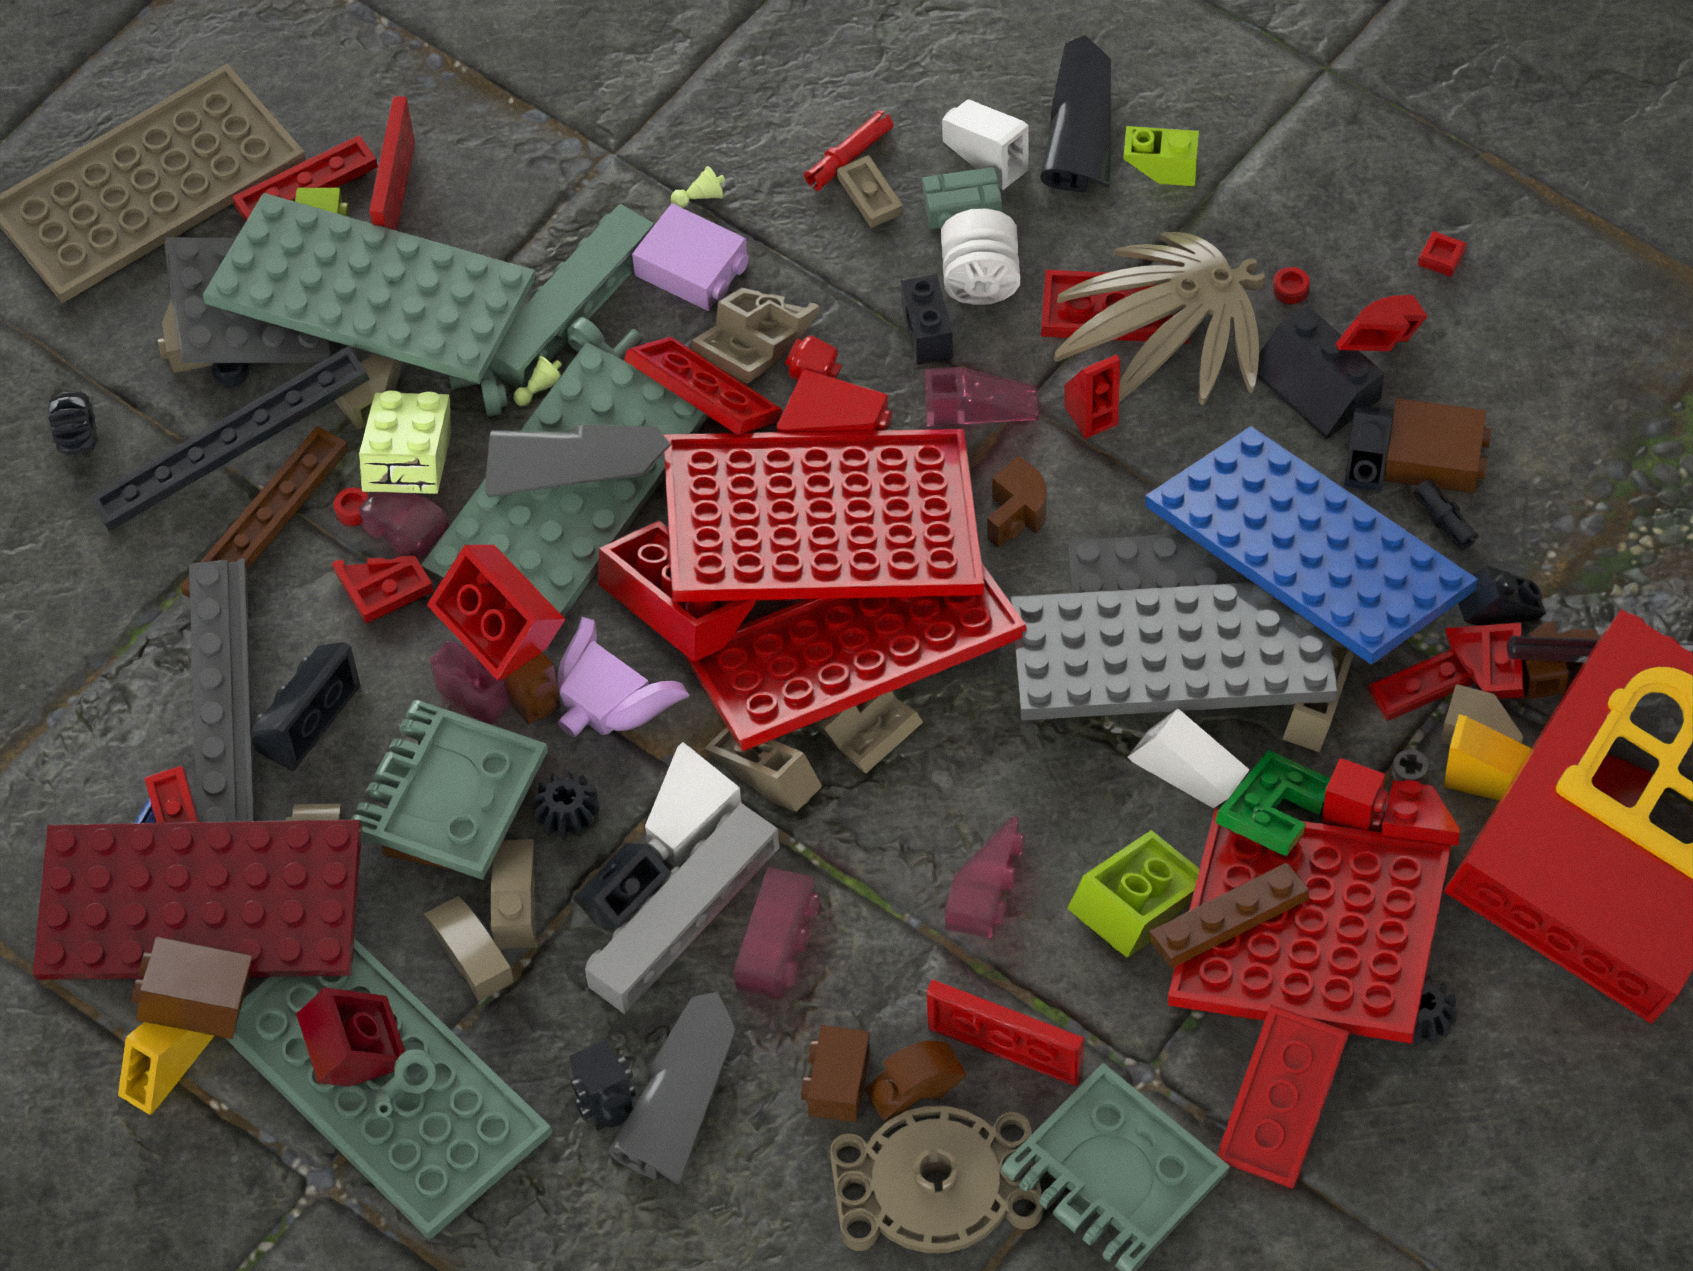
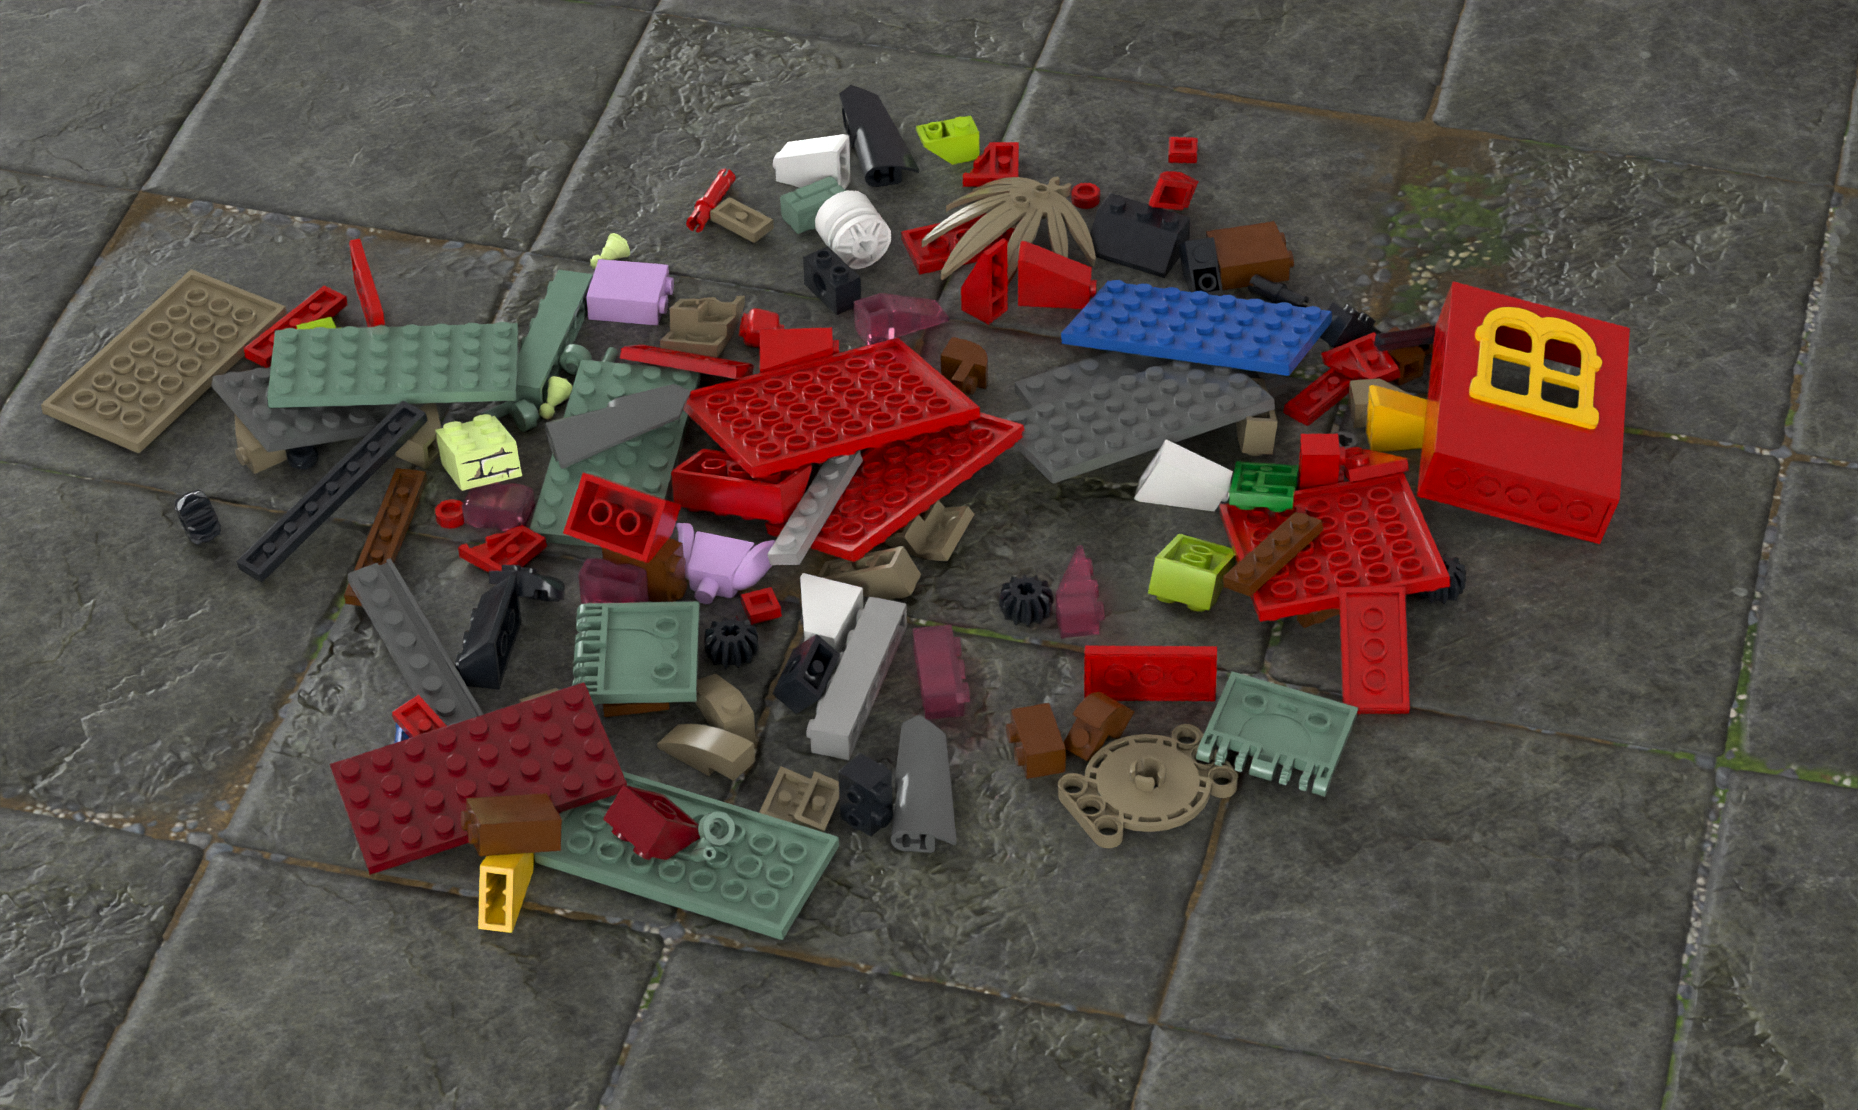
camera: 25 degrees left, 15 degrees down
(377, 648) = (531, 584): none -> black slope
(536, 1056) = (802, 799): none -> dark tan slope
(625, 763) = (761, 605): none -> red plate
(732, 661) = (814, 509): none -> light grey plate
(923, 853) = (1026, 600): none -> black gear
(1180, 406) = (1052, 279): none -> red slope
(1203, 208) = (997, 162): none -> red wing

